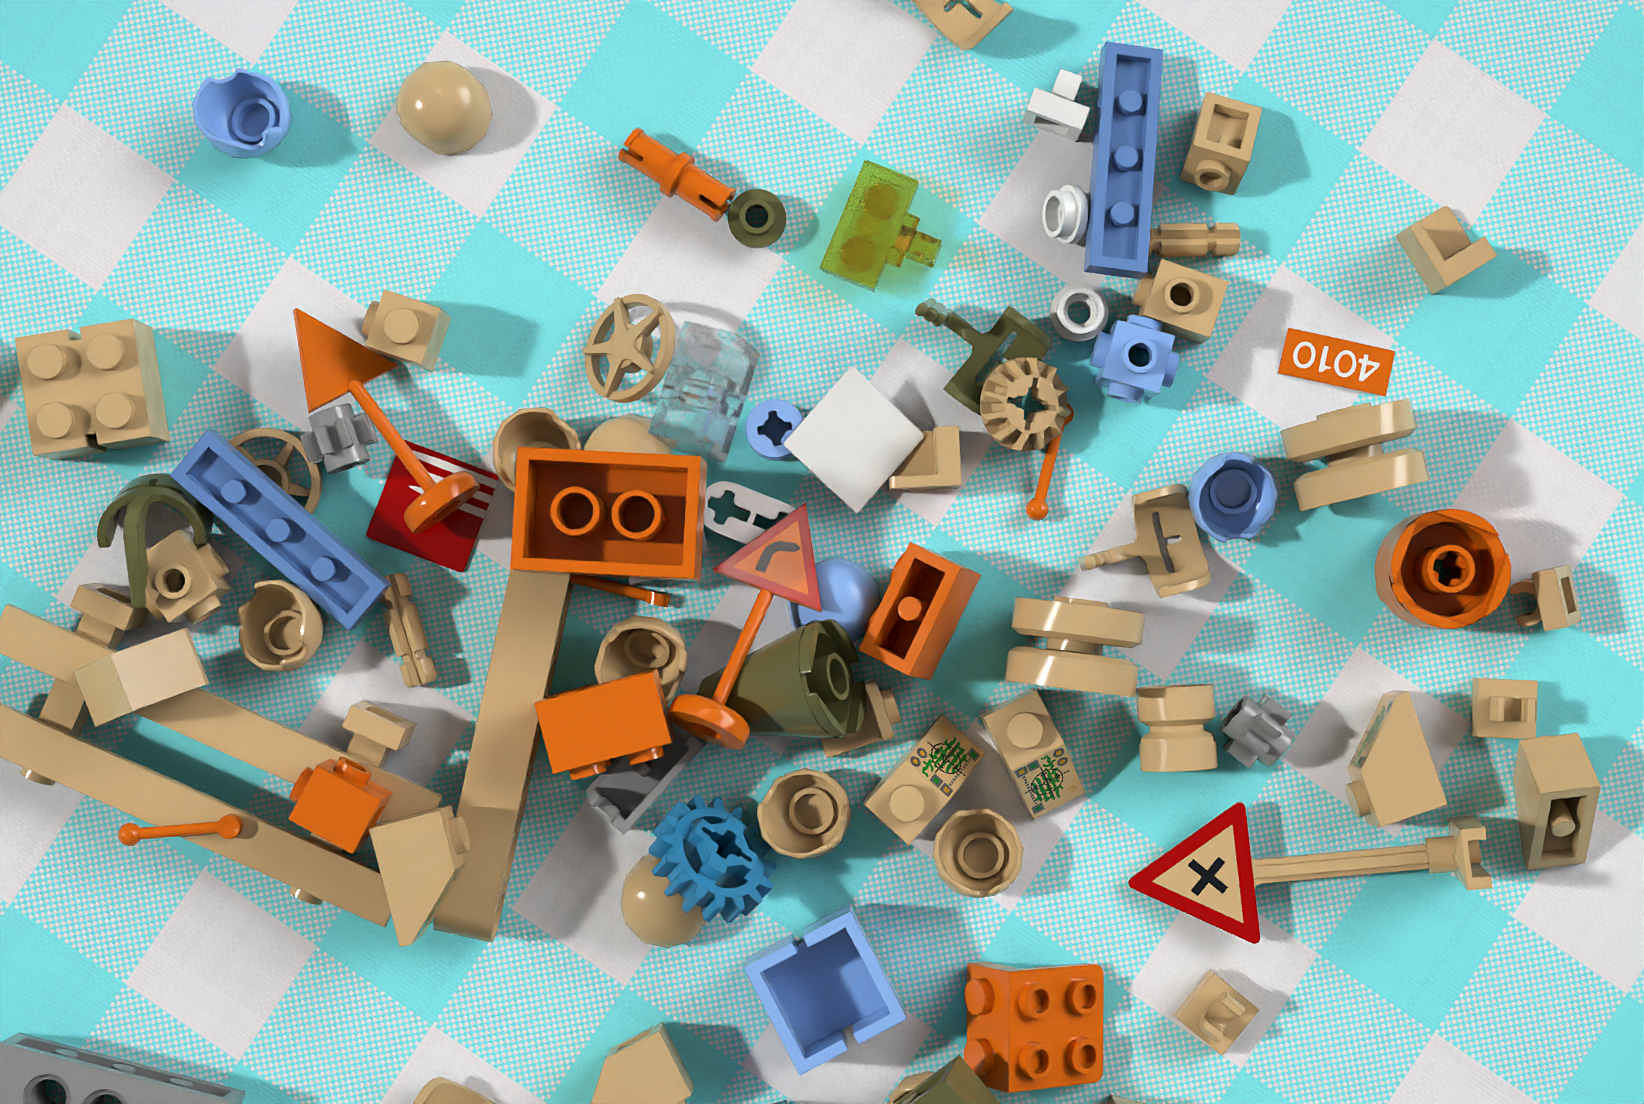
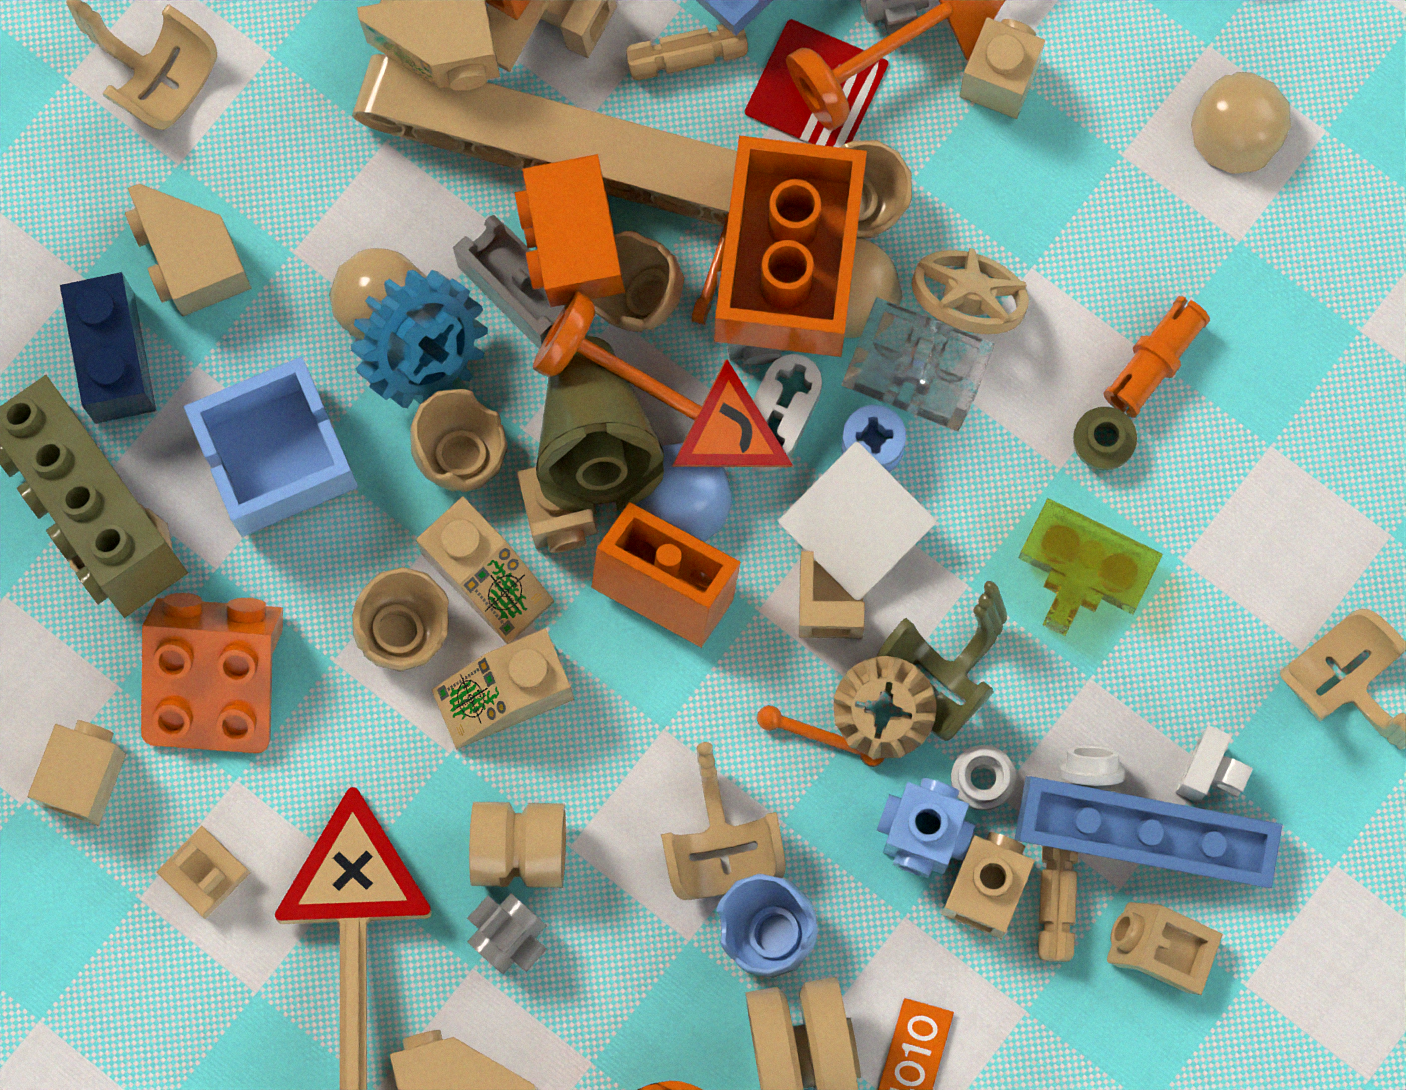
camera: 100 degrees right, 10 degrees down
(1075, 645) = (624, 734): tan wheel -> none

